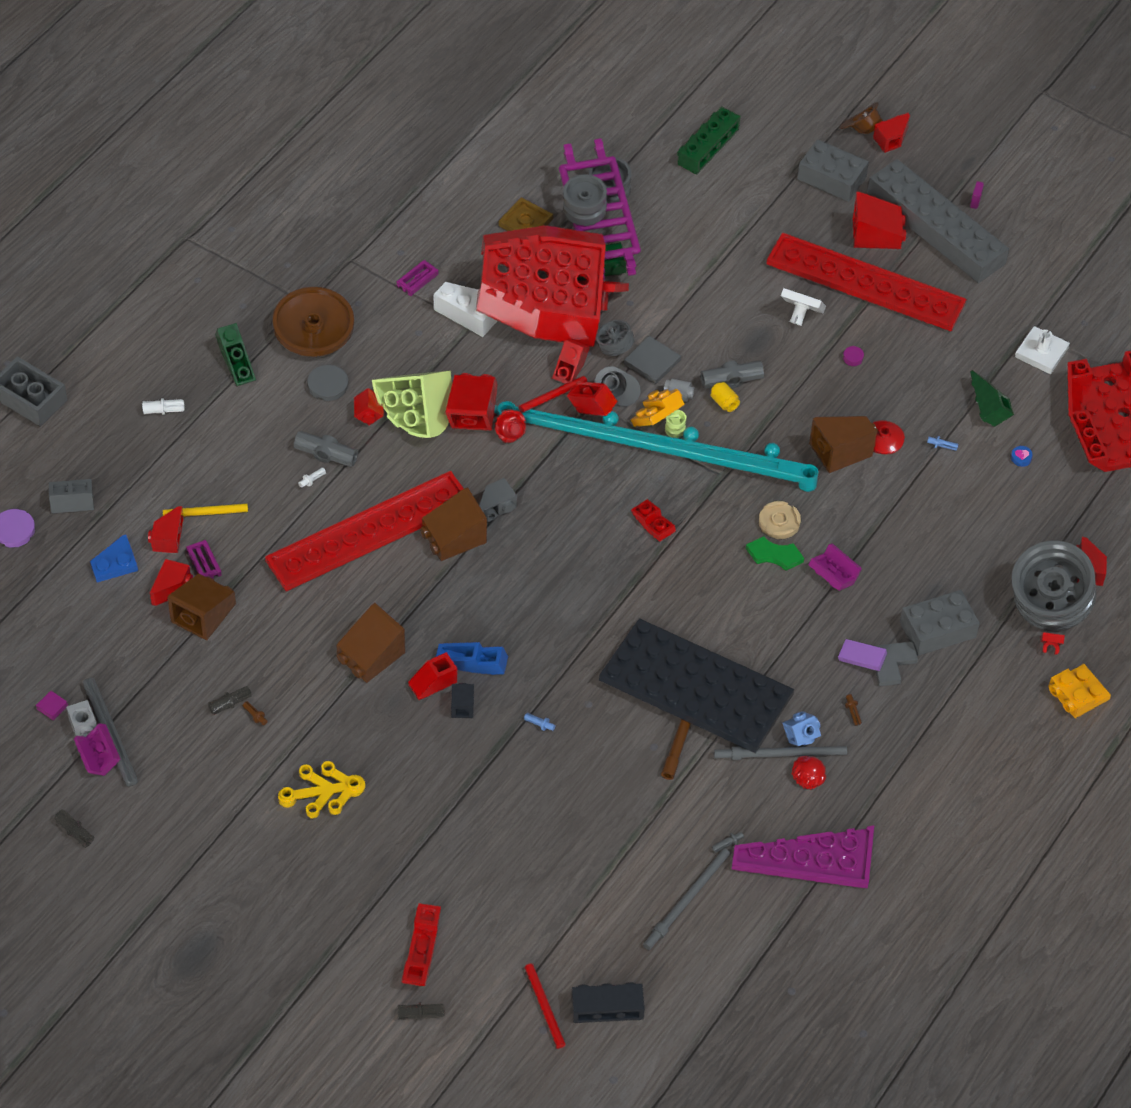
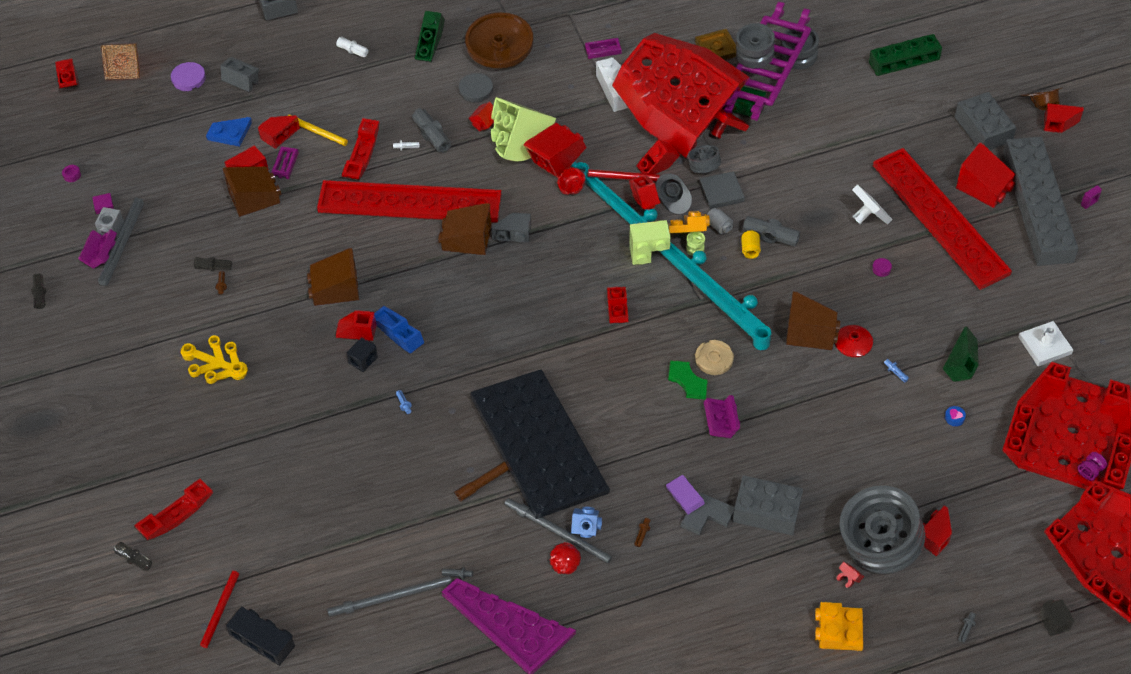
camera: 40 degrees right, 0 degrees up
(273, 505) = (363, 149): none -> red slope
(635, 442) = (648, 238): none -> yellowish green brick

